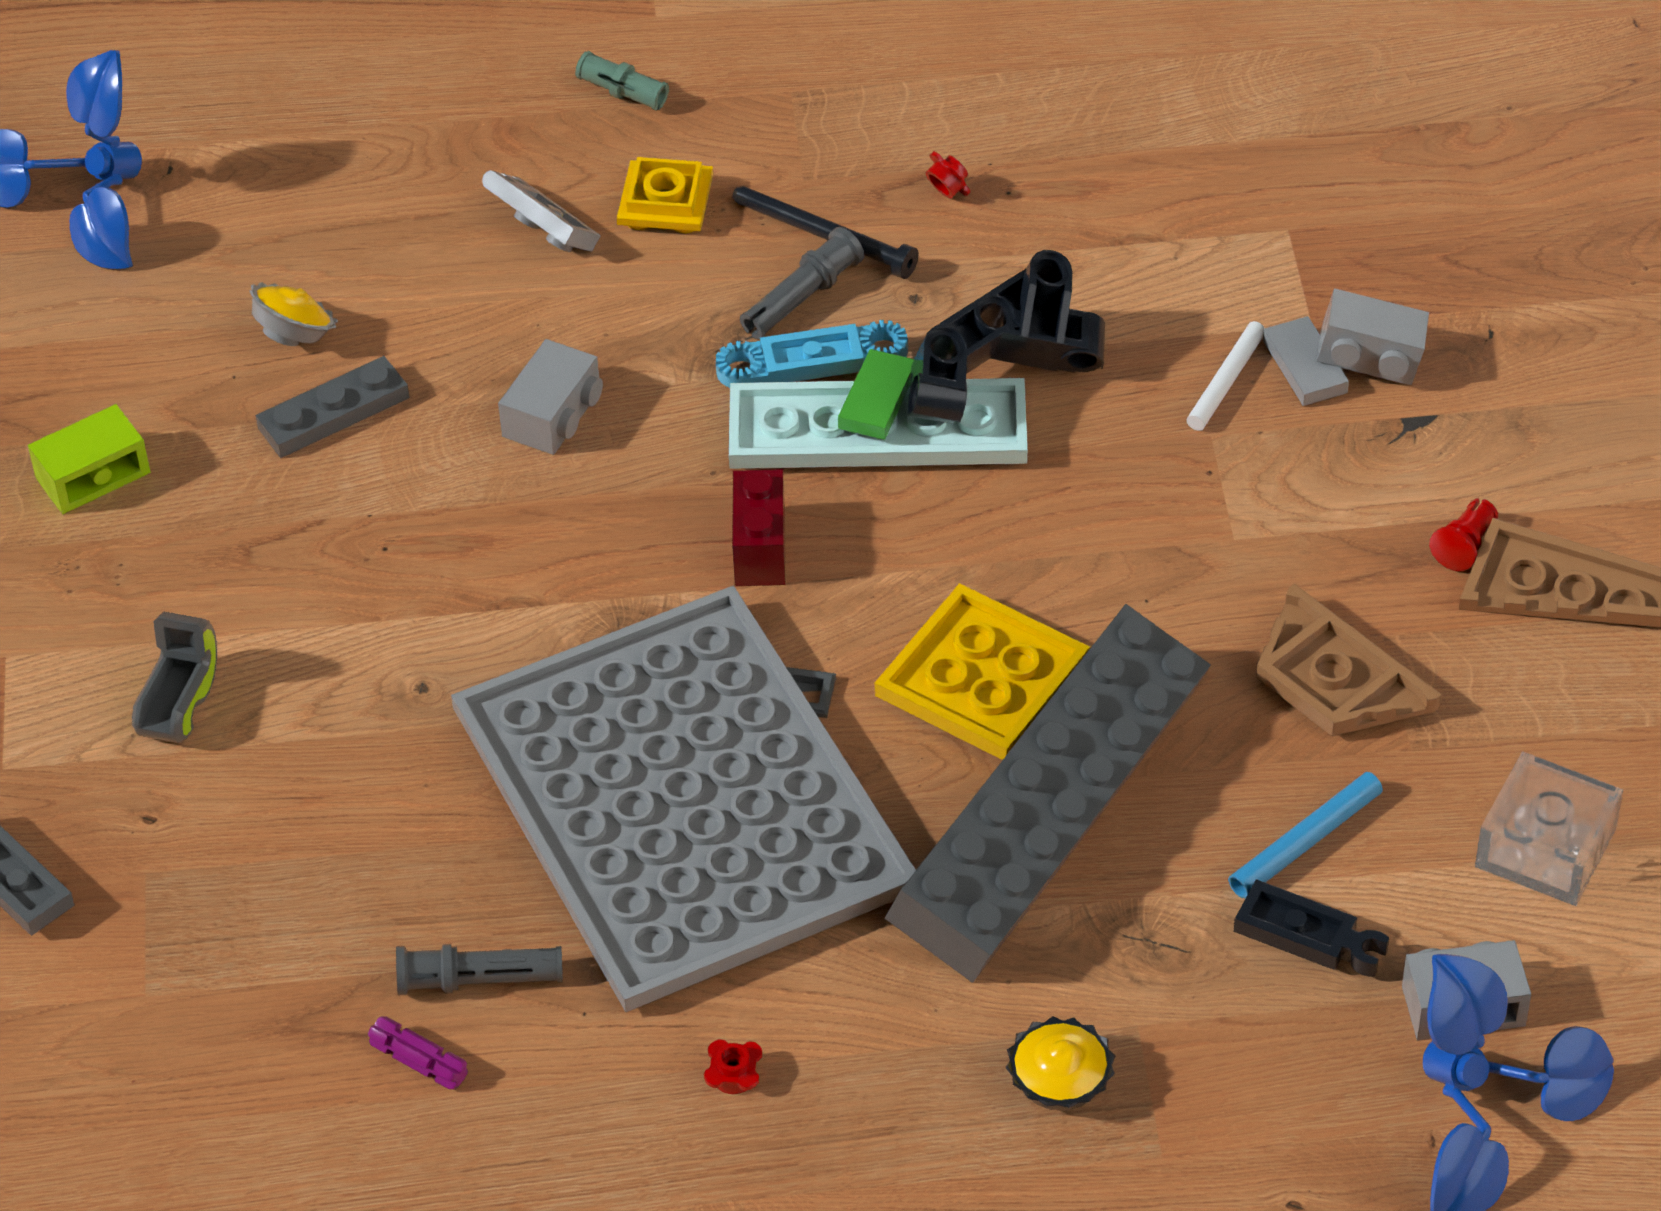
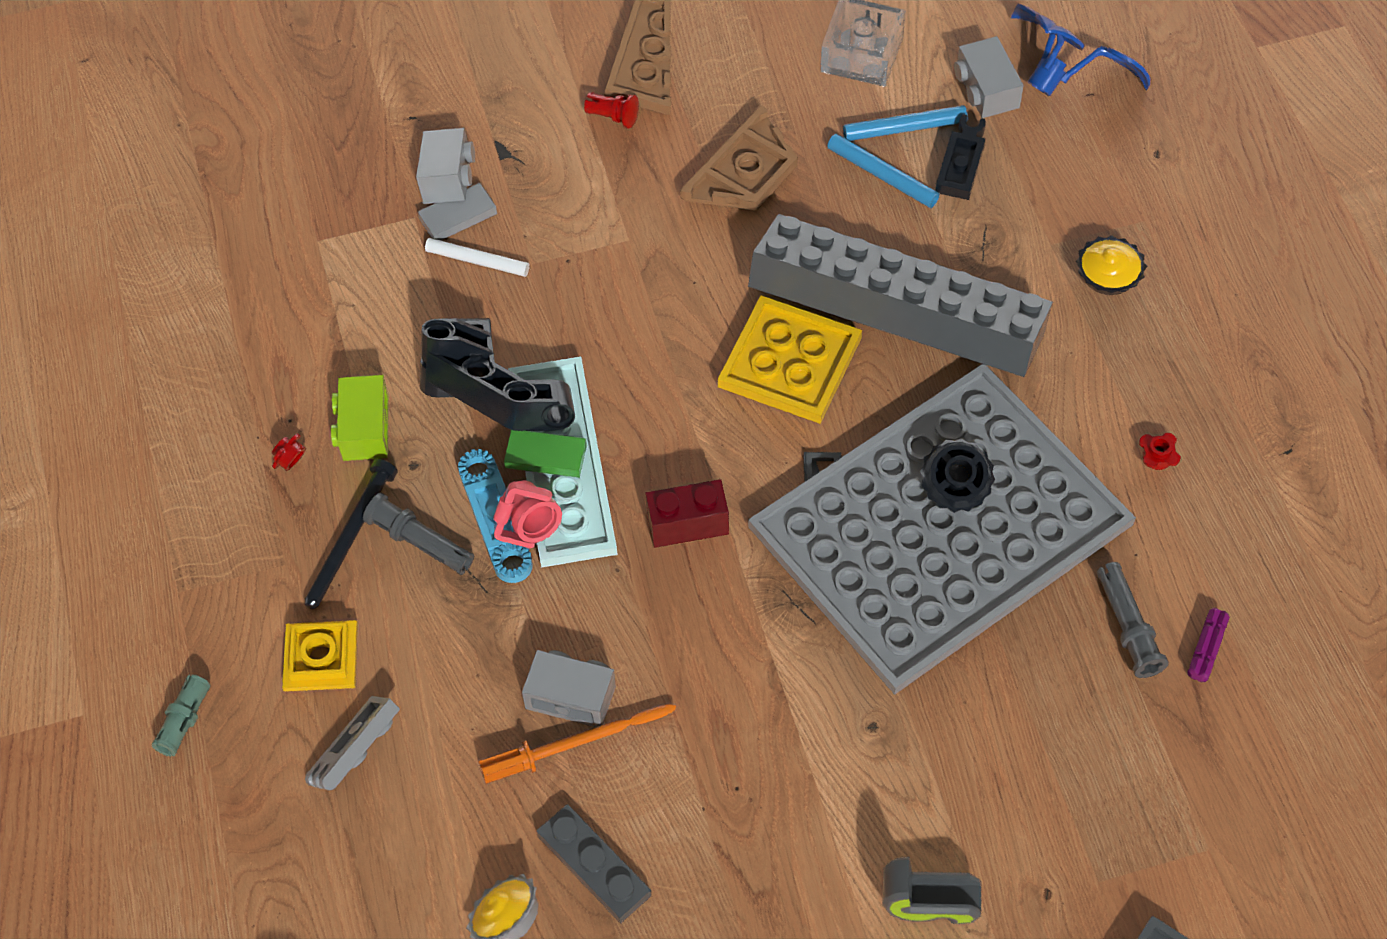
camera: 100 degrees left, 10 degrees up
(478, 358) = (523, 758): none -> orange piece
(728, 793) = (957, 475): none -> black piece
(784, 357) = (530, 511): none -> coral piece
(975, 236) = (362, 418): none -> lime brick
(1395, 876) = (903, 123): none -> dark azure piece

